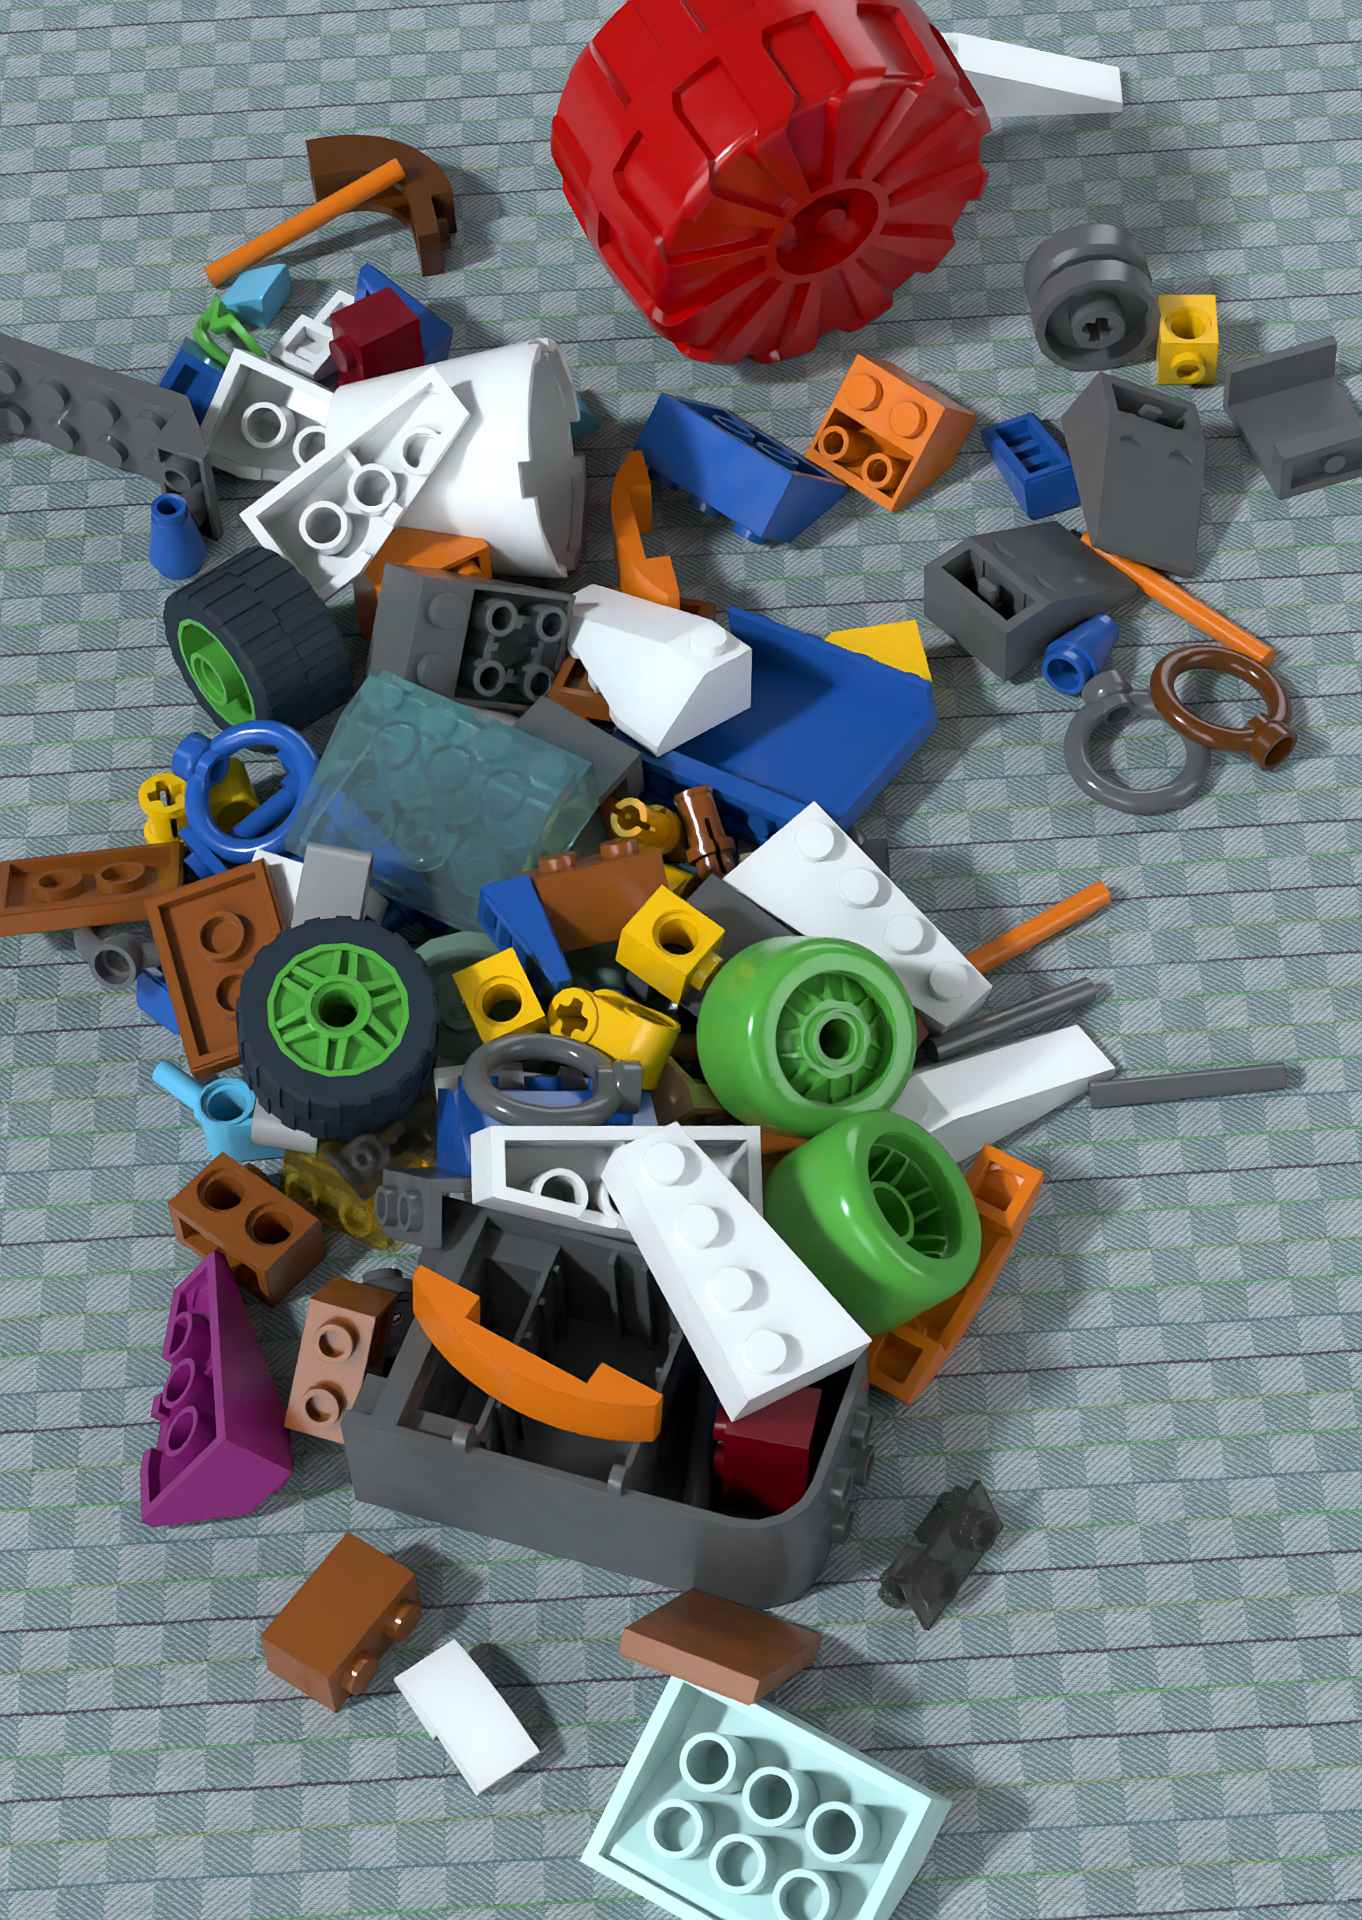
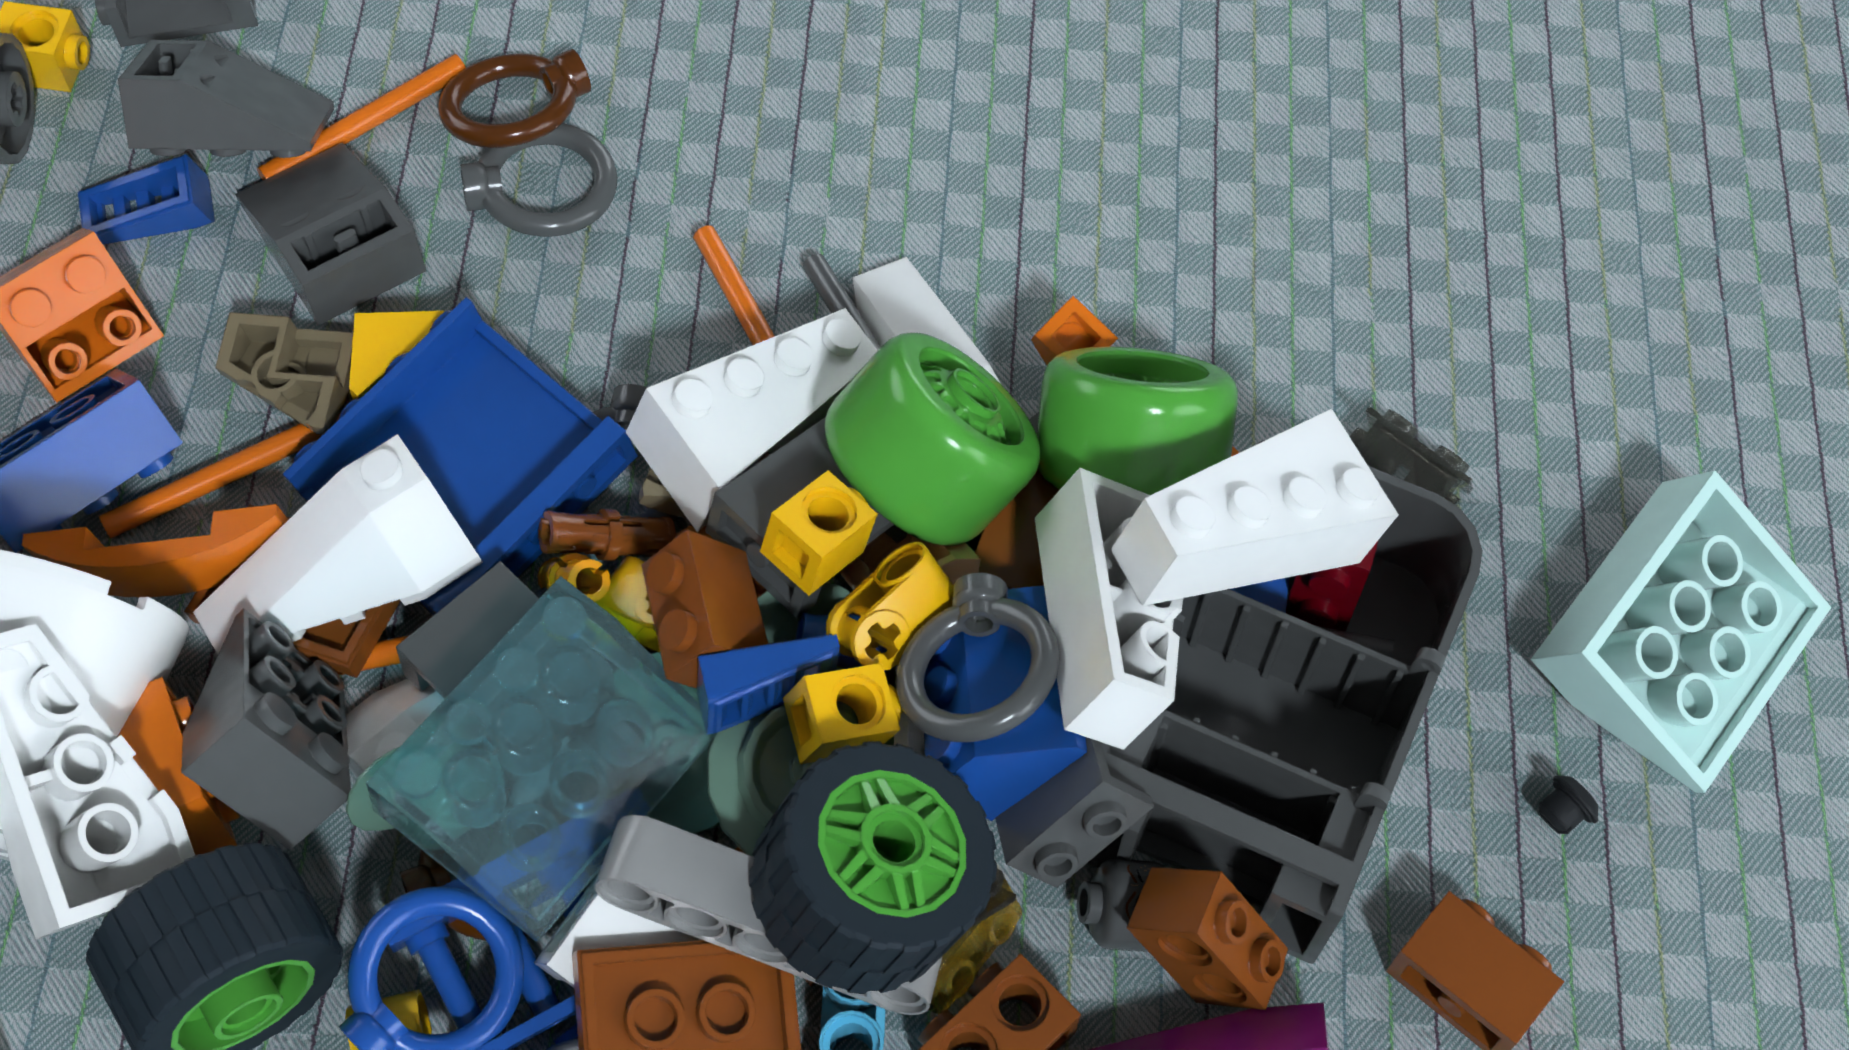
camera: 90 degrees left, 10 degrees up
(466, 1716) = (1568, 873): white slope -> none
(543, 1713) = (1568, 805): none -> black piece
(603, 1408) = (1268, 778): orange slope -> none
(719, 1645) = (1548, 624): dark orange tile -> none
(741, 572) = (207, 479): none -> orange bar
(860, 589) = (288, 366): none -> dark tan slope
(1079, 654) = (422, 199): blue cone -> none
(1187, 1084) = (934, 207): dark grey bar -> none

